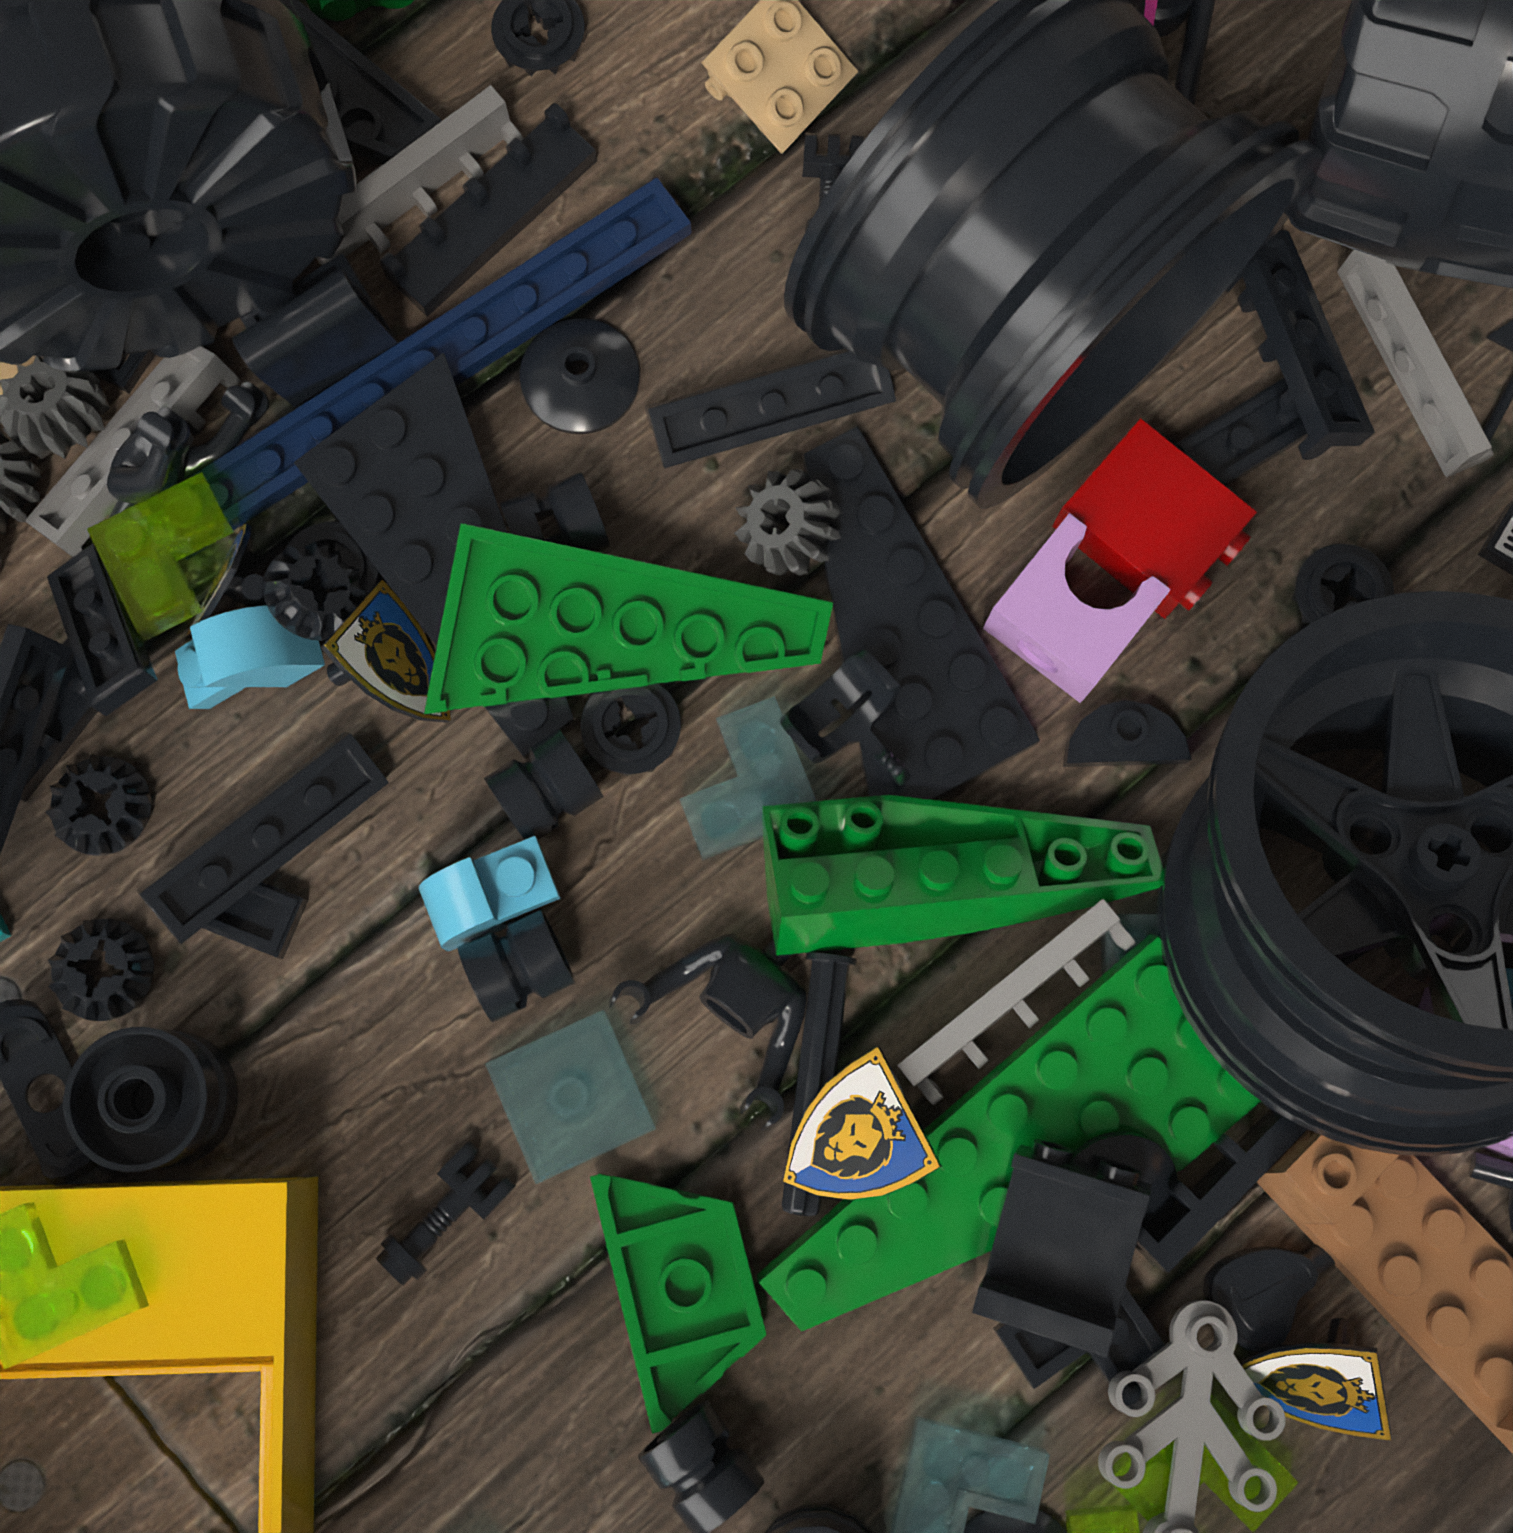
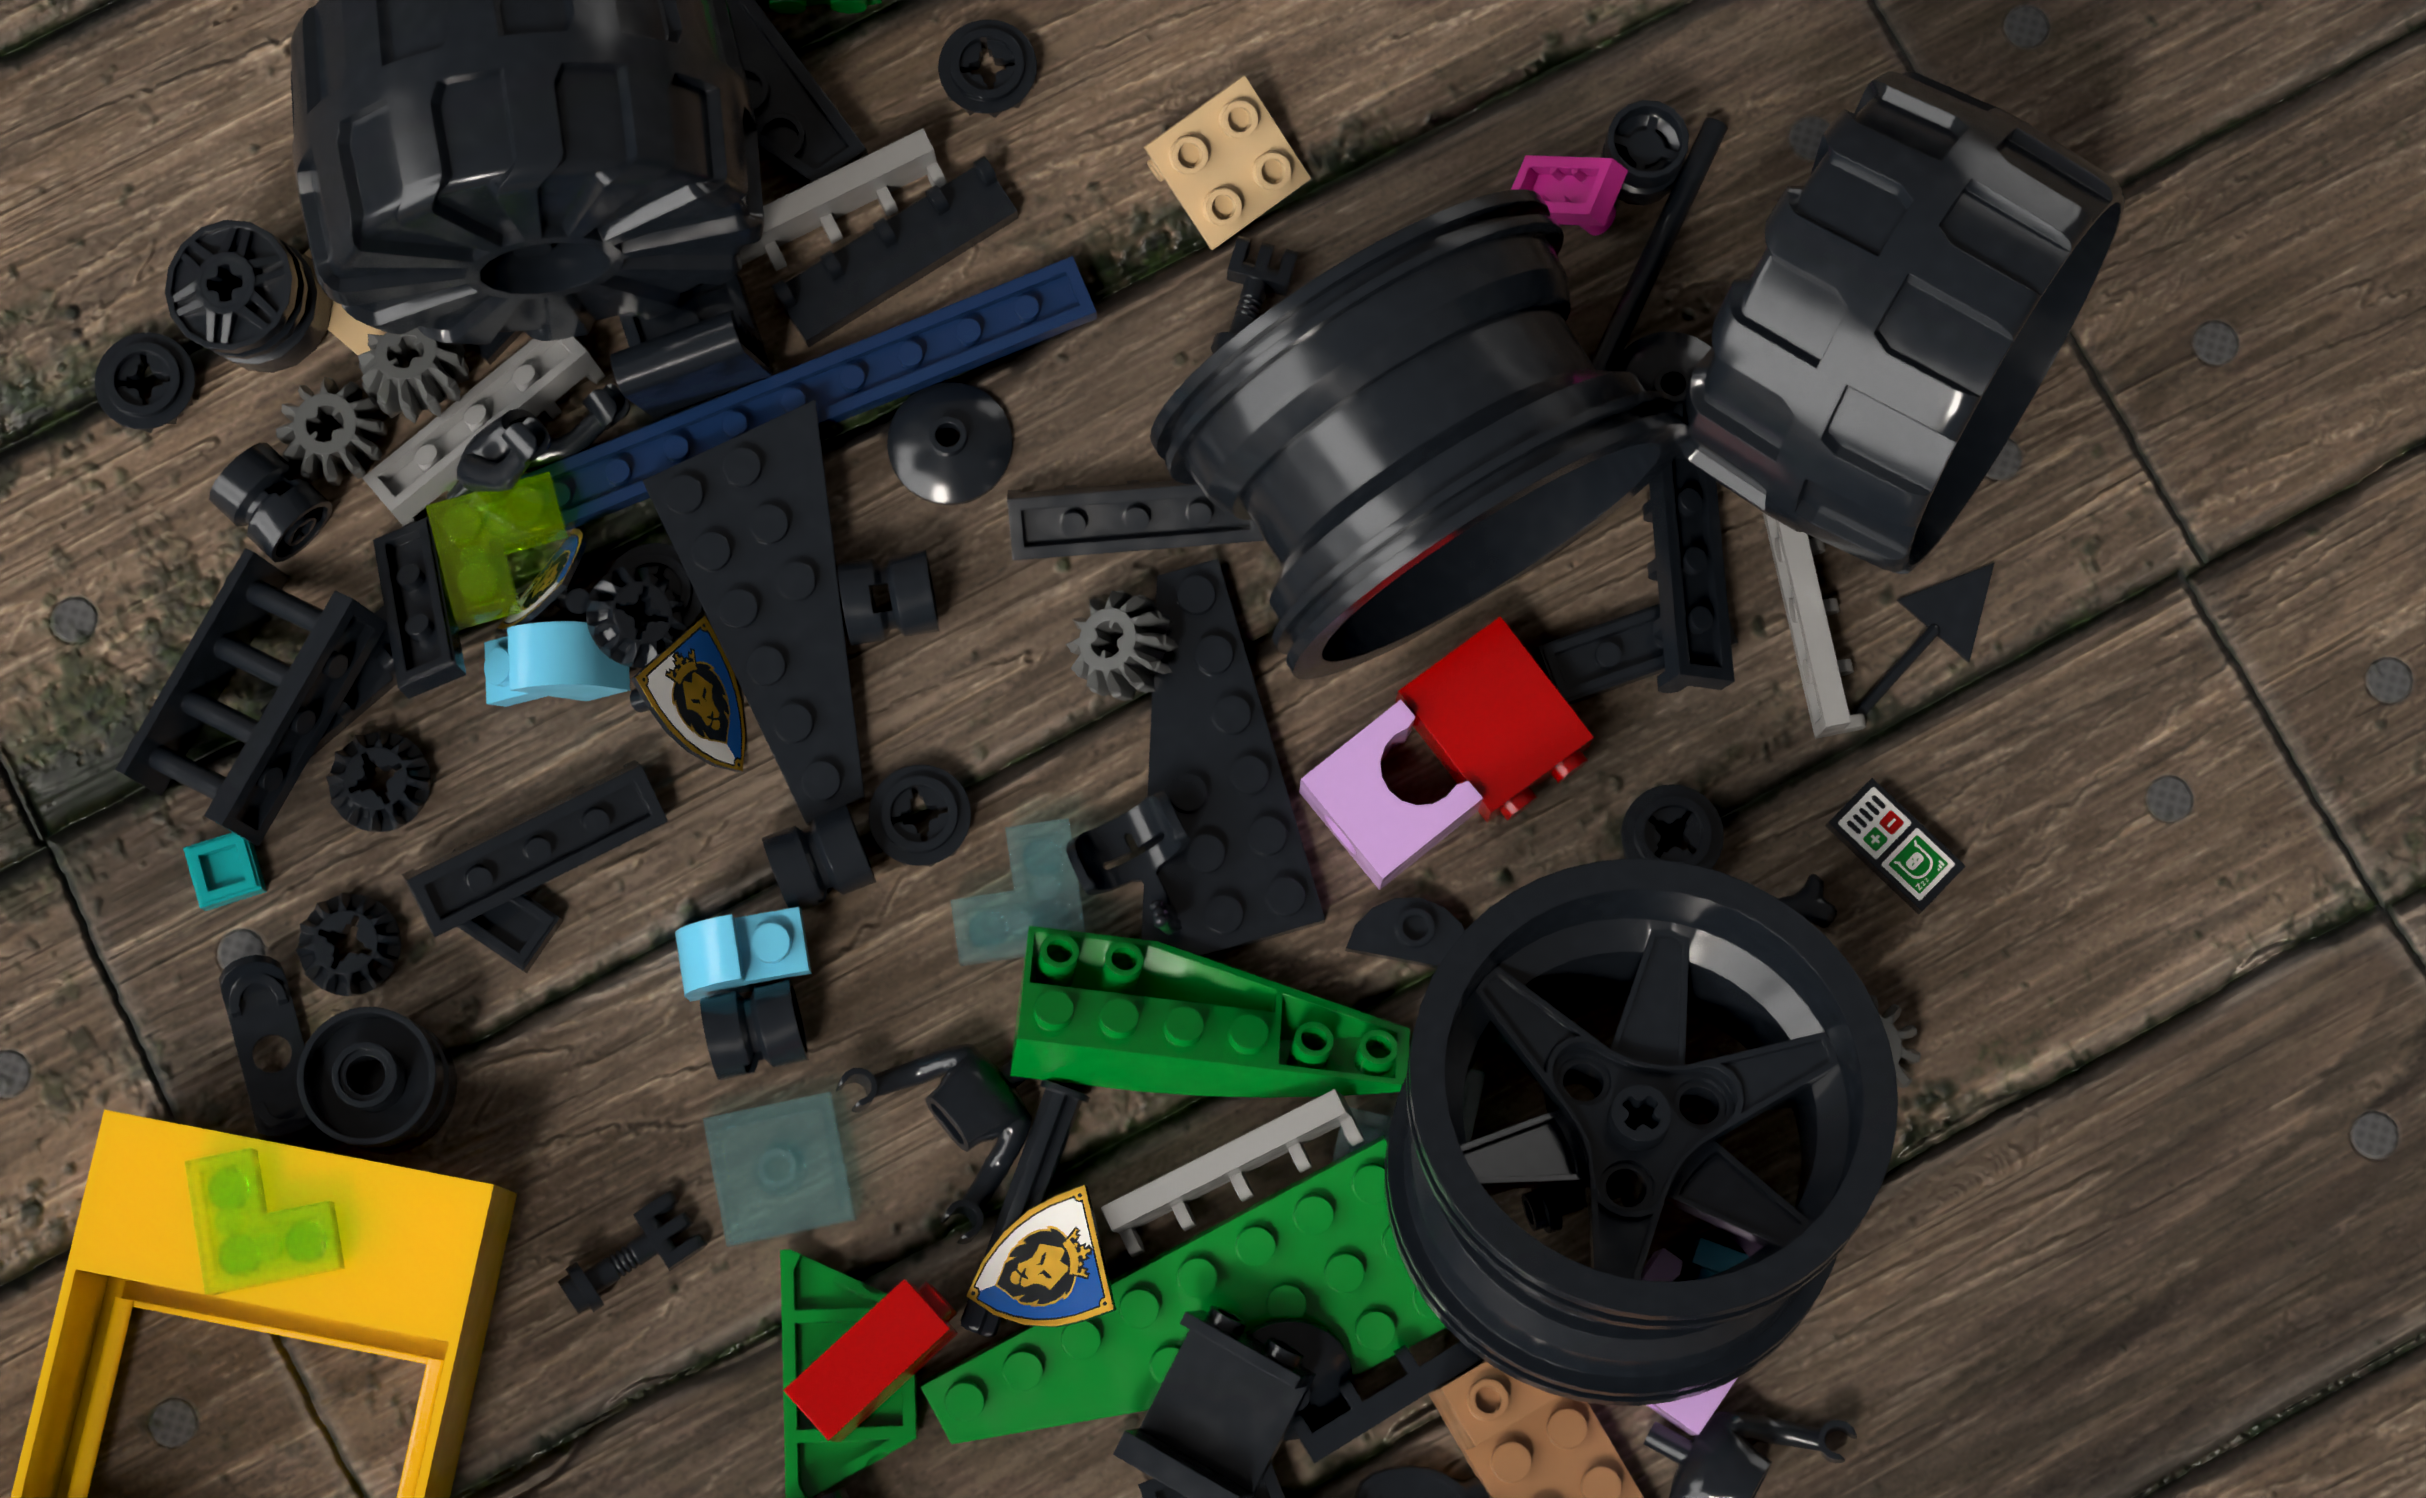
camera: 15 degrees right, 0 degrees up
(575, 621) = (890, 704): green wing -> none
(711, 1275) = (873, 1359): none -> red brick

